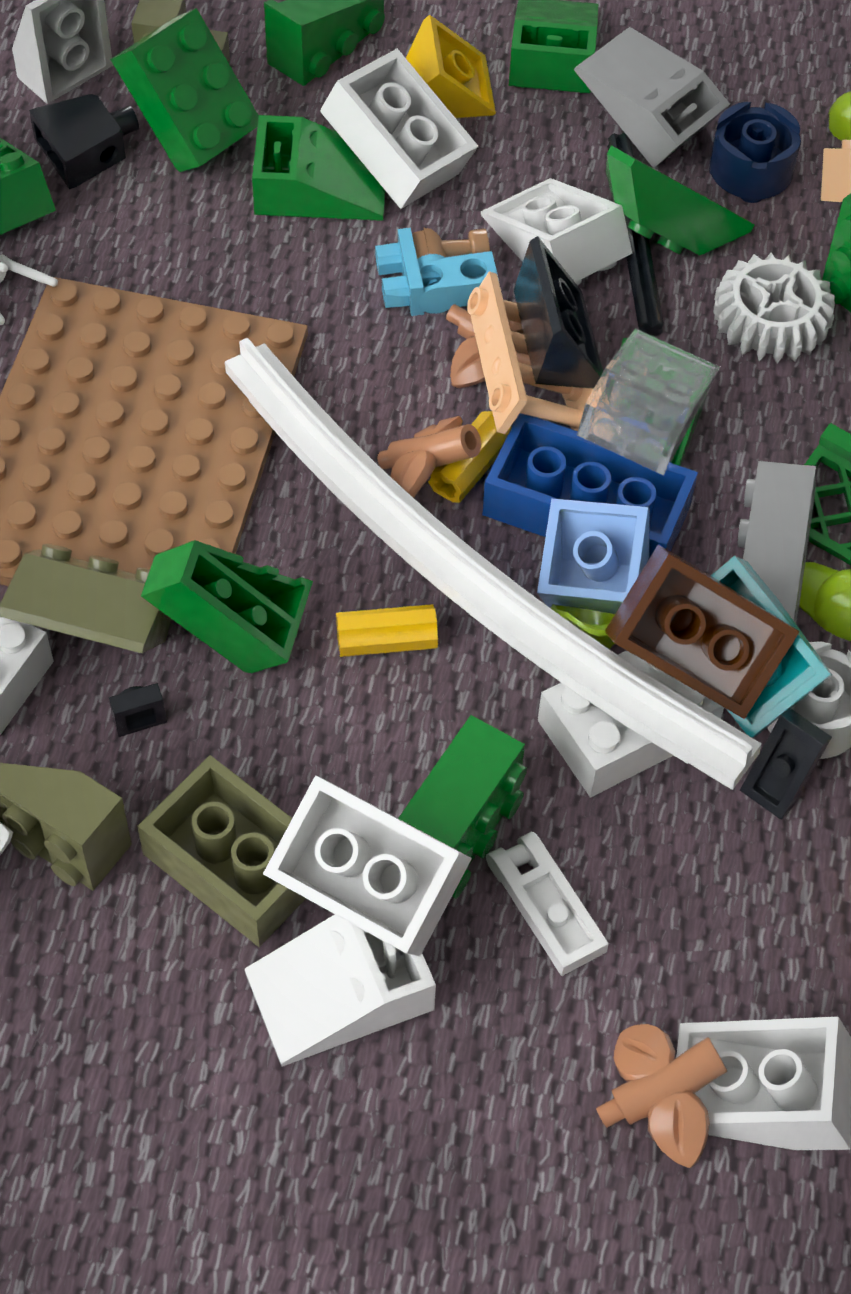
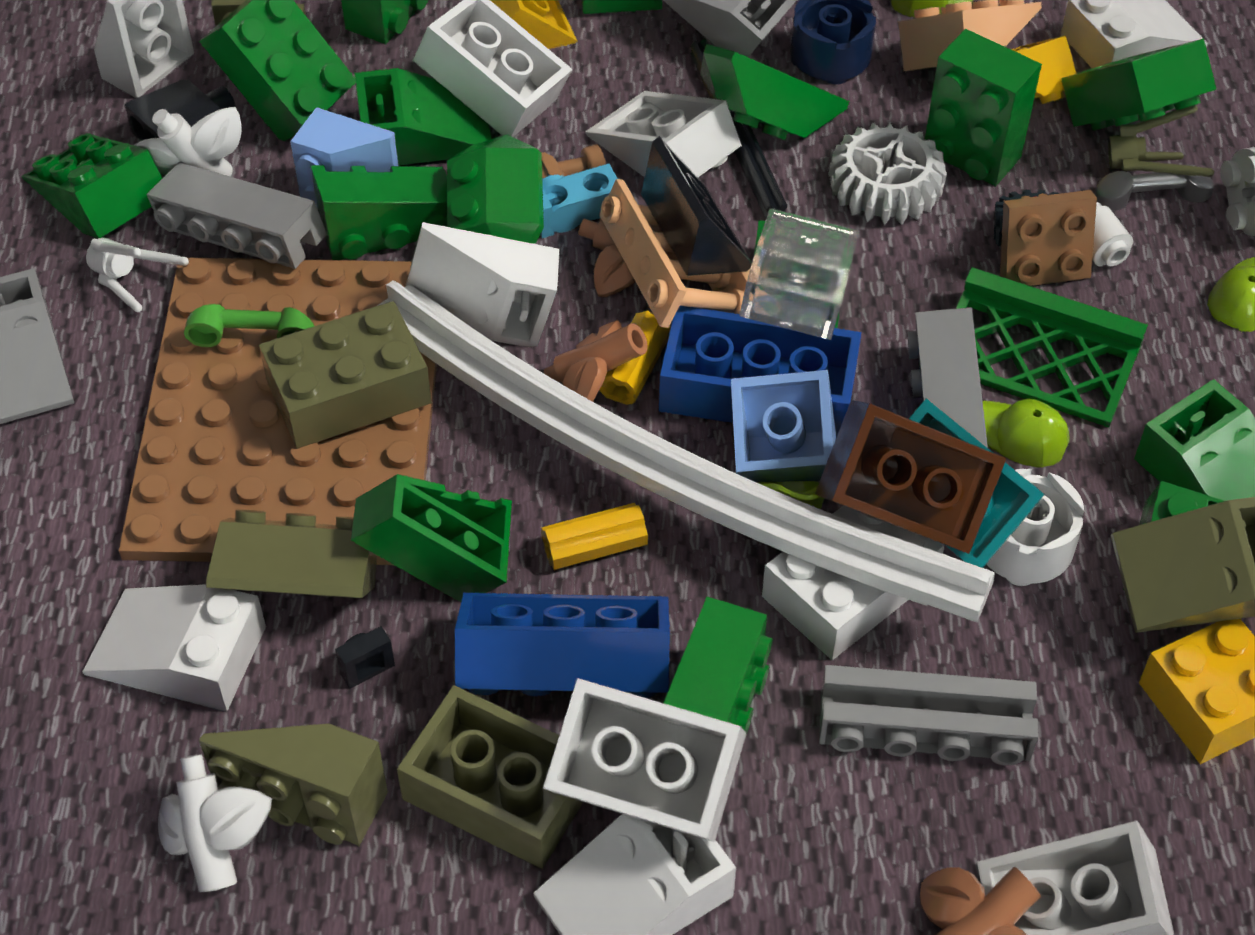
camera: 10 degrees left, 5 degrees down
(60, 349) = (206, 323): none -> bright green bar
(88, 167) = (200, 145): none -> white plant
(113, 242) = (236, 214): none -> light grey brick
(180, 425) = (345, 374): none -> olive brick
(228, 207) = (338, 145): none -> light blue slope
(258, 260) = (378, 209): none -> green wedge
(325, 731) = (554, 638): none -> blue brick
(339, 355) = (487, 281): none -> white slope
(364, 281) = (497, 189): none -> green wedge
(548, 904) = (819, 769): white plate -> none
(668, 870) = (928, 714): none -> light grey brick
(785, 763) = (1016, 590): black plate -> none

